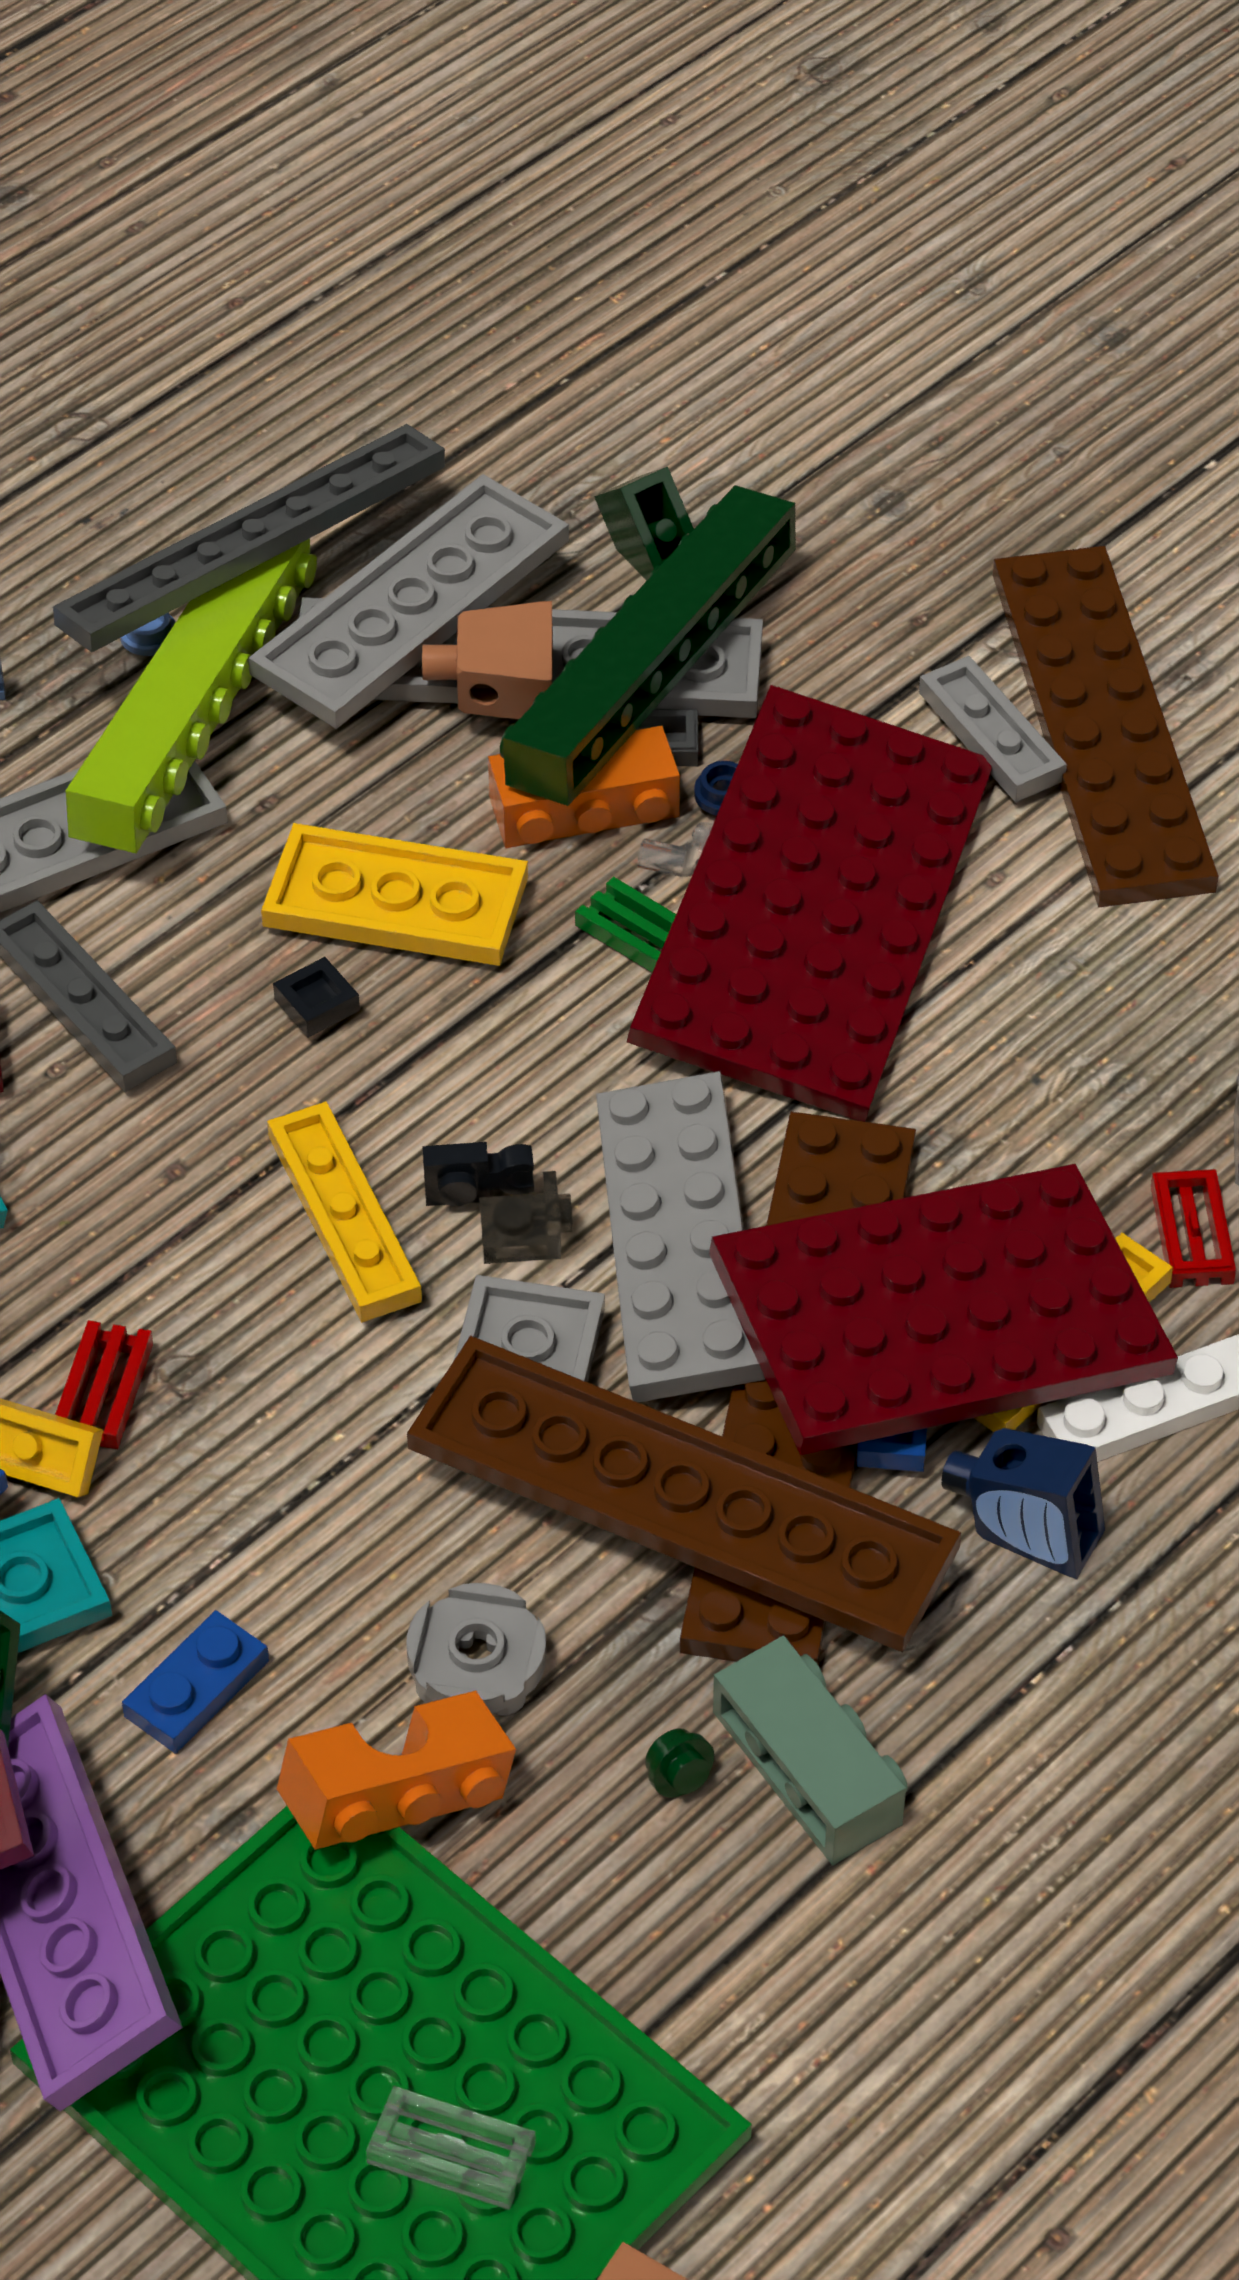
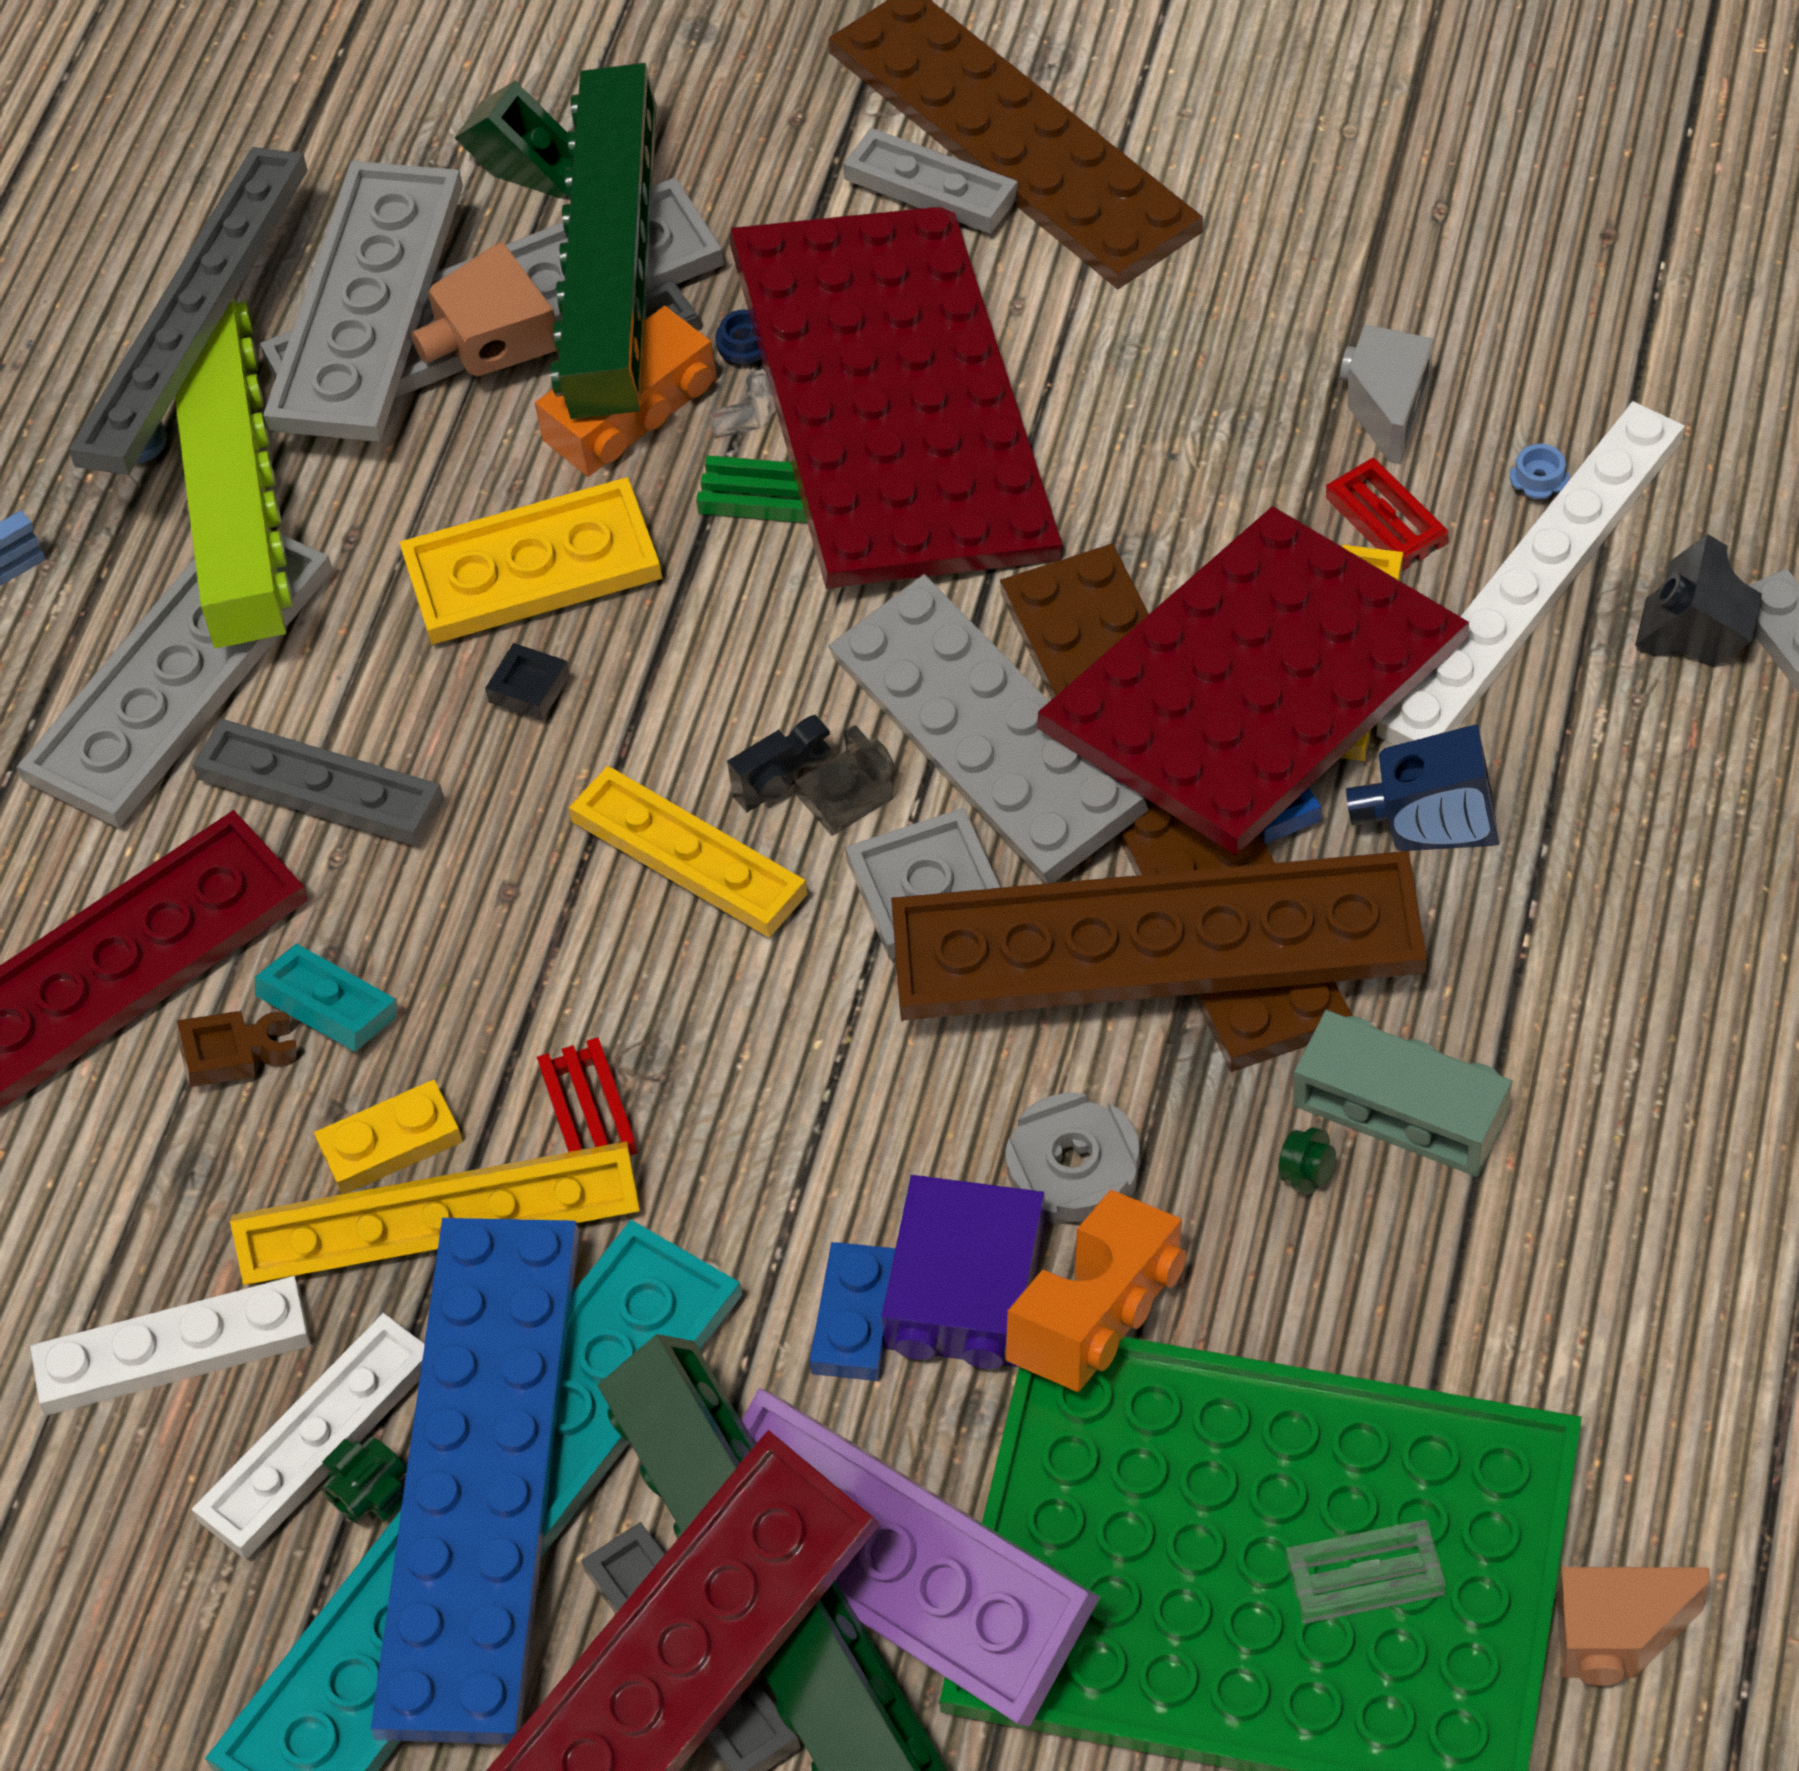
camera: 25 degrees left, 5 degrees up
(304, 1676) = (960, 1267): none -> dark purple brick

